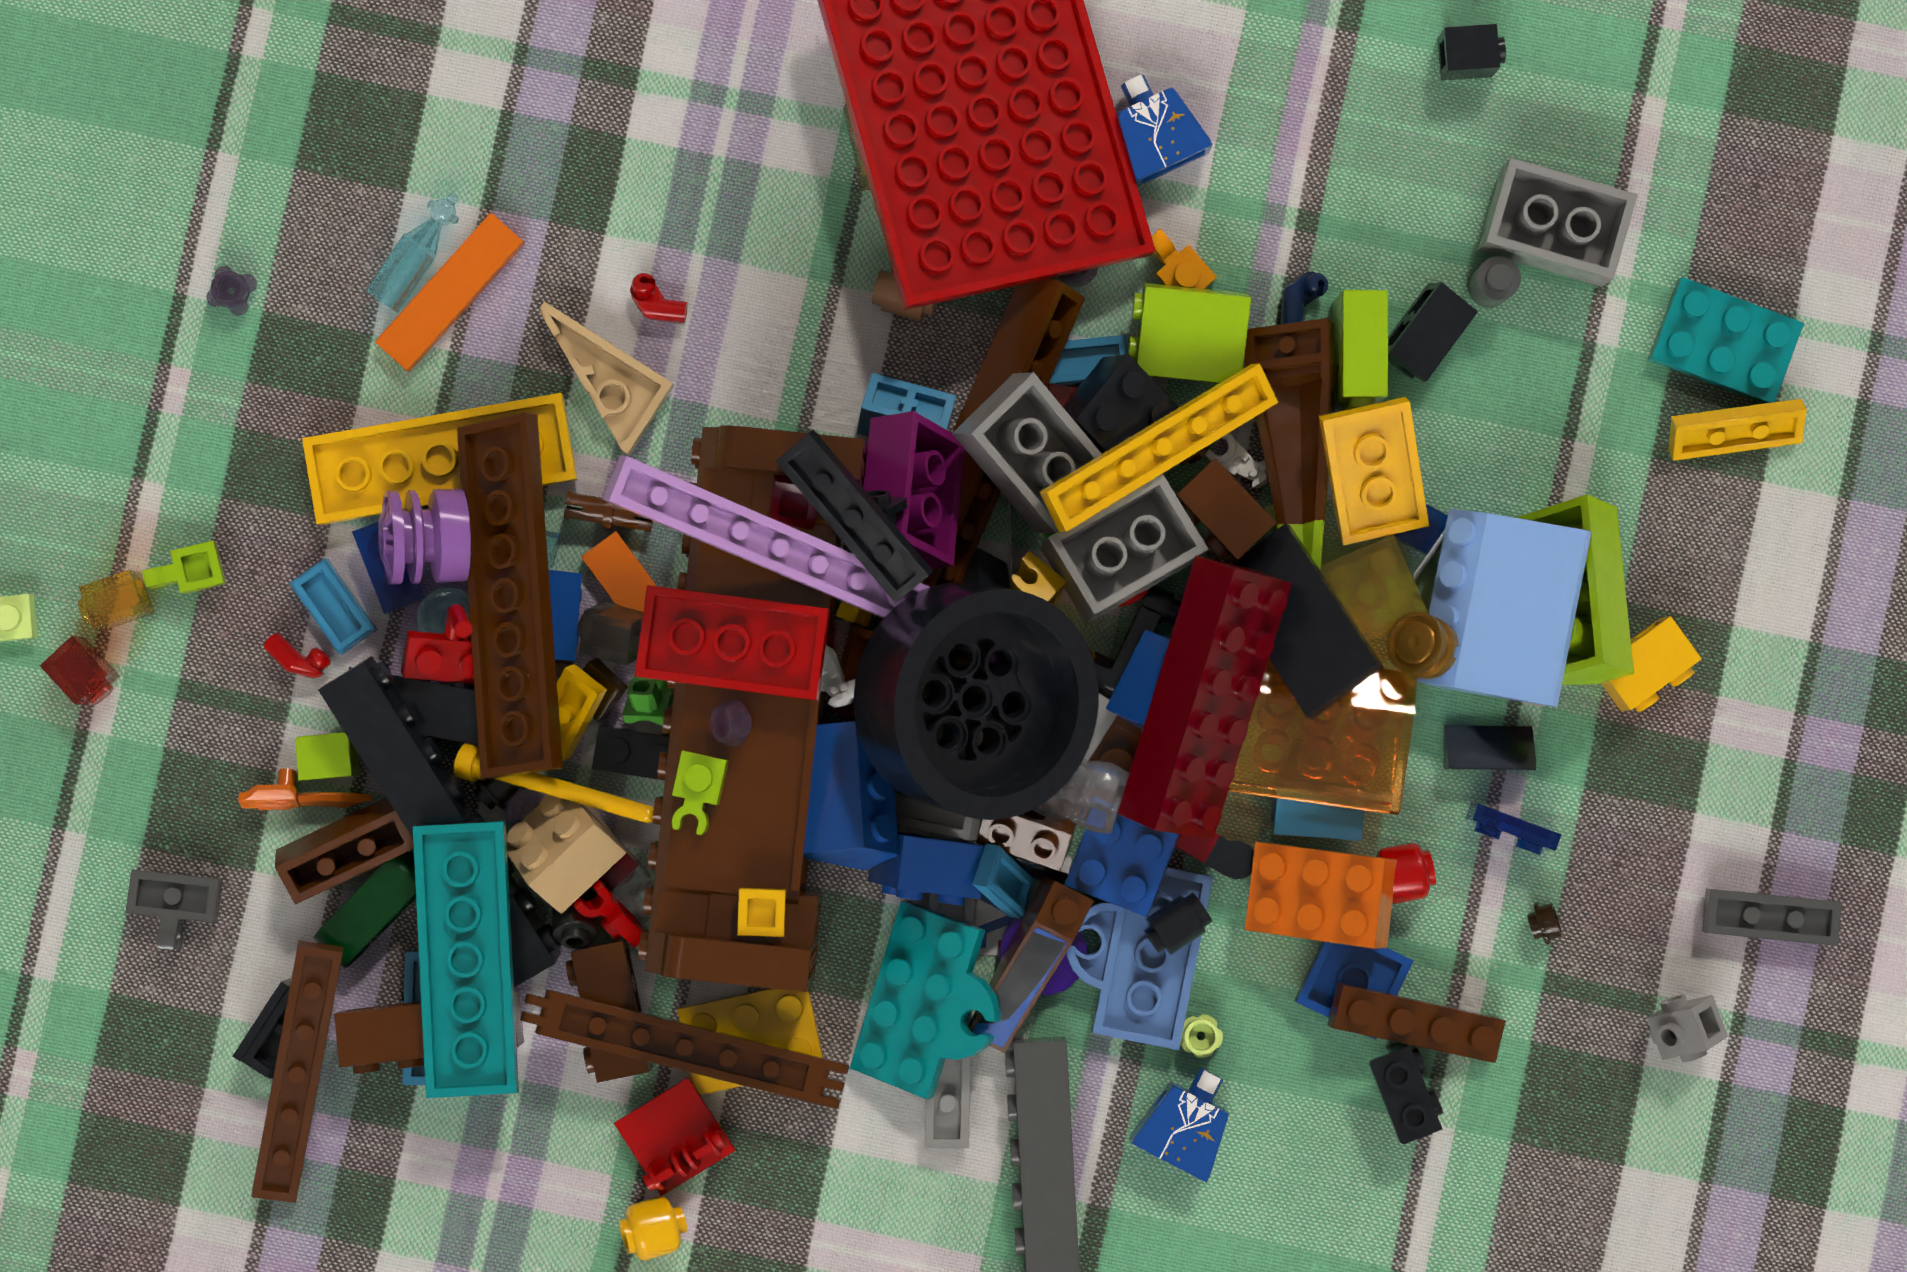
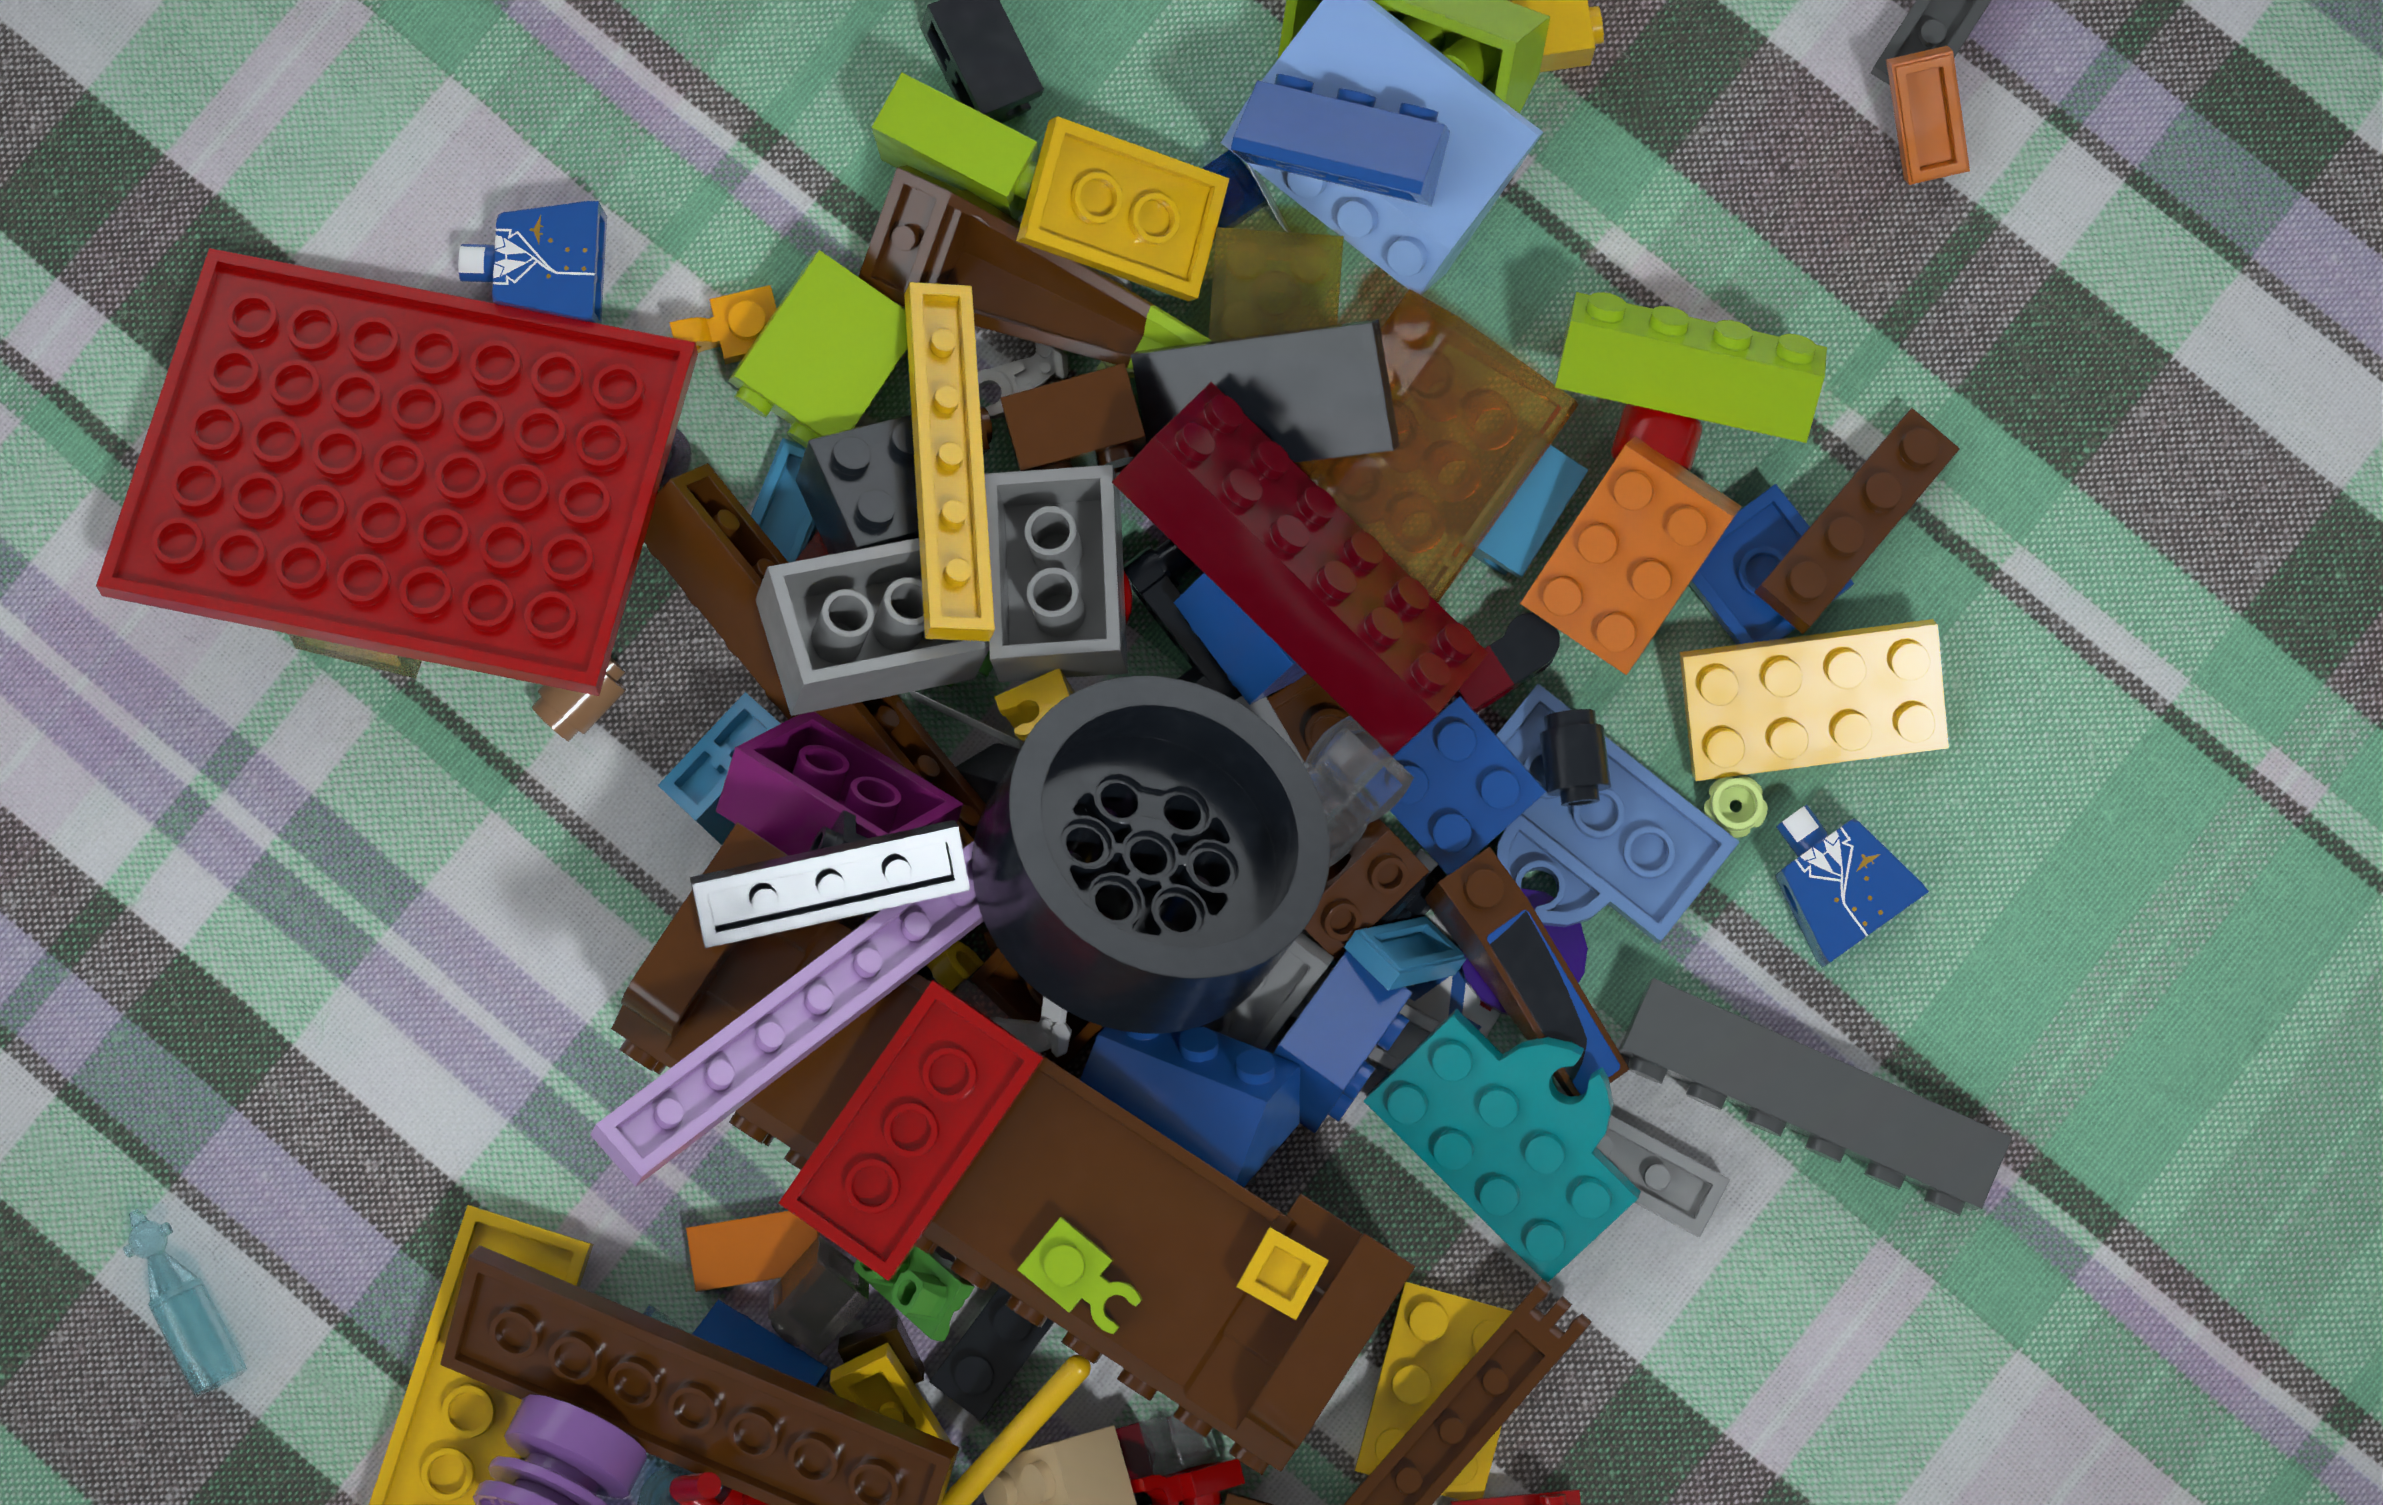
camera: 55 degrees left, 5 degrees down
(450, 292) = (258, 1286): orange tile -> none
(603, 512) = (656, 1223): reddish brown pin -> none
(618, 384) = (495, 1126): tan wing -> none
(652, 302) = (414, 1026): red arm -> none
(731, 723) = (1015, 1185): plate -> none
(790, 505) = (770, 959): dark red plate -> none
(1290, 1052) = (1814, 700): none -> yellow plate
(1301, 293) = (848, 190): dark blue arm -> none
(1404, 1092) = (1940, 579): black bracket -> none
(1422, 645) = (1376, 262): pearl gold wheel -> none
(1457, 873) = (1691, 366): none -> lime slope
(1487, 586) = (1343, 139): none -> blue slope
(1489, 747) = (1552, 251): black slope -> none
(1528, 835) = (1690, 256): clear blue plate -> none
(1544, 923) = (1811, 295): dark brown plate -> none
(1686, 1027) = (2035, 184): light grey brick -> none
(1696, 938) = (1928, 115): none -> orange tile

